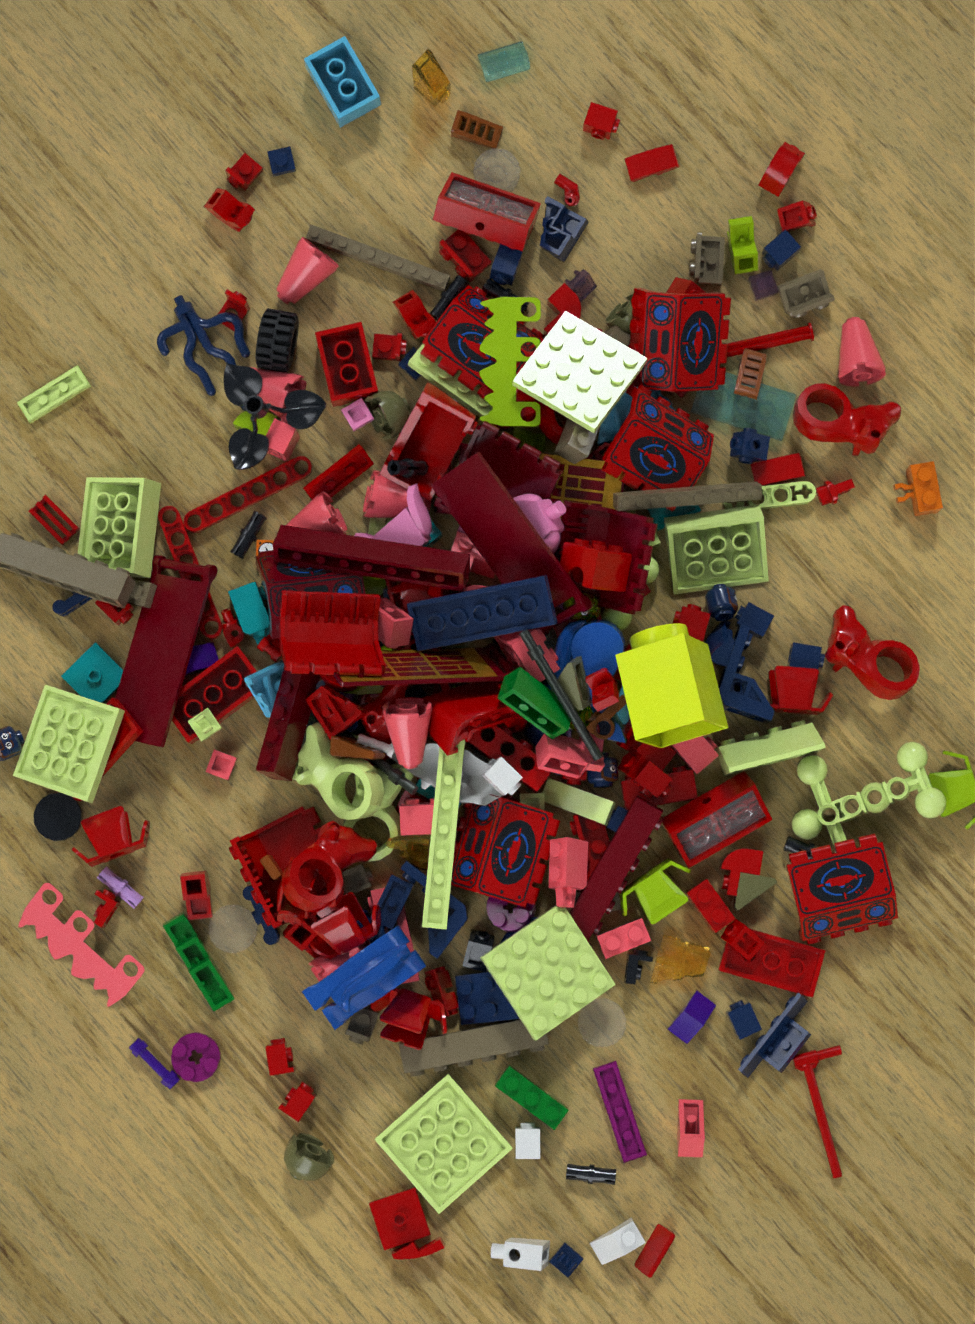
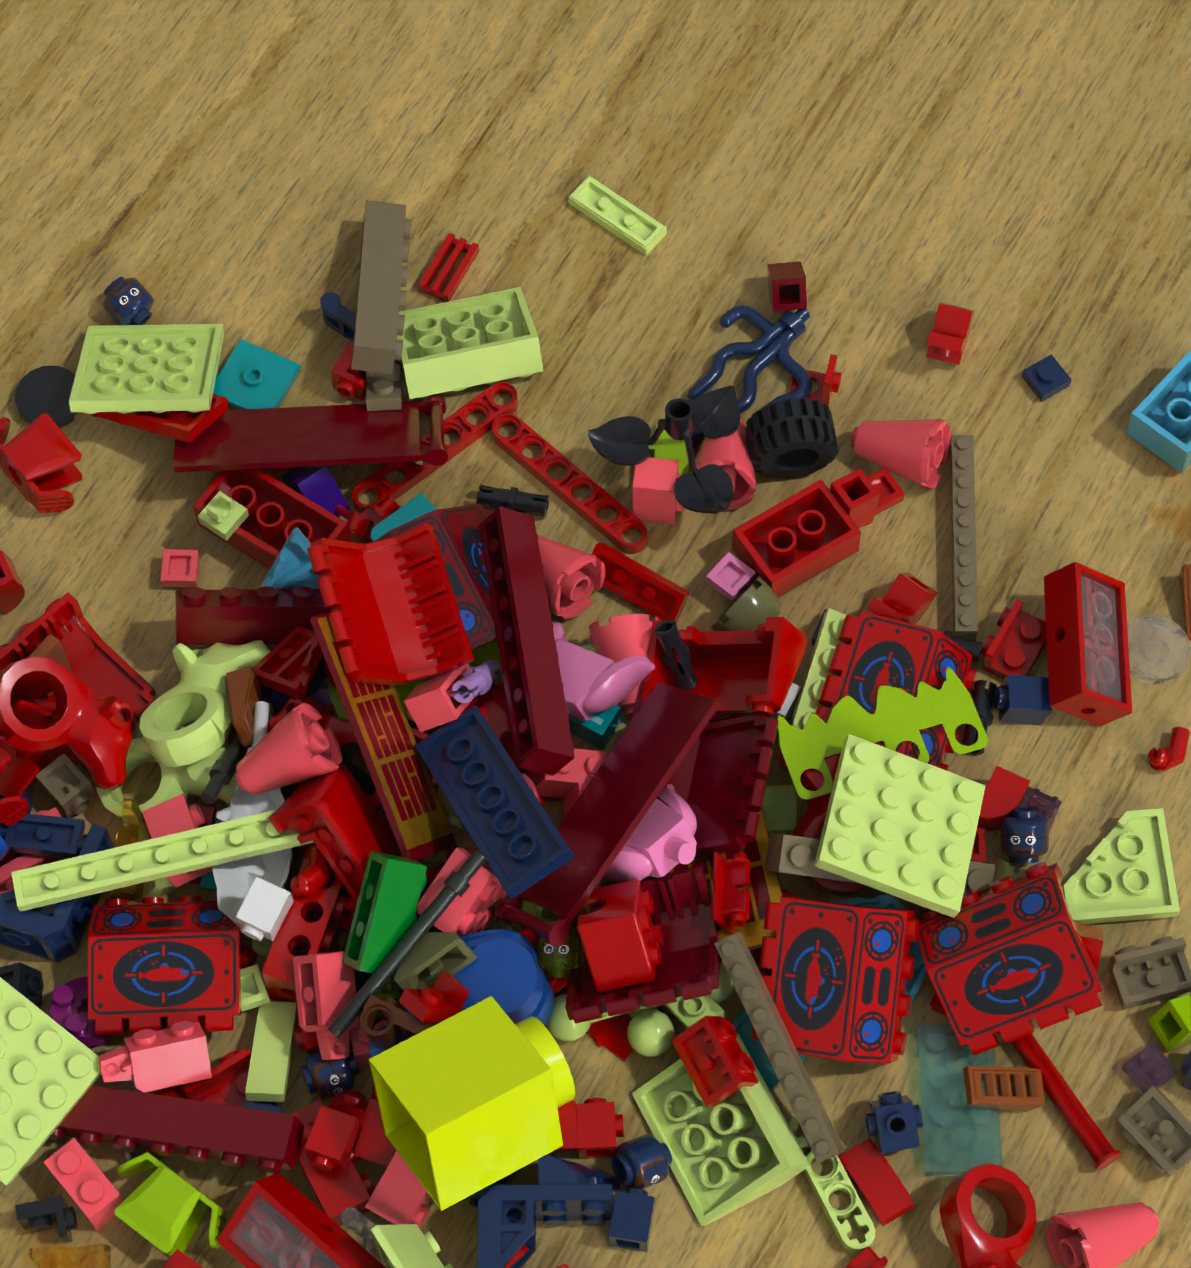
camera: 70 degrees right, 20 degrees down
(157, 302) = (787, 286): none -> dark red brick
(232, 640) = (357, 524): none -> red hand
(243, 172) = (1009, 336): red bracket -> none
(330, 306) = (866, 496): none -> red brick
(388, 597) = (477, 681): none -> lavender pin
(389, 347) = (844, 590): red bracket -> none
(488, 740) = (313, 877): none -> red arm
(561, 229) = (1108, 760): dark blue slope -> none
(573, 487) = (729, 905): none -> red hinge
(596, 300) = (1024, 835): none -> dark blue head
(638, 248) = (1126, 874): none -> yellowish green plate
(684, 536) = (714, 1059): none -> red bracket
(707, 777) = (360, 1226): none -> clear arm

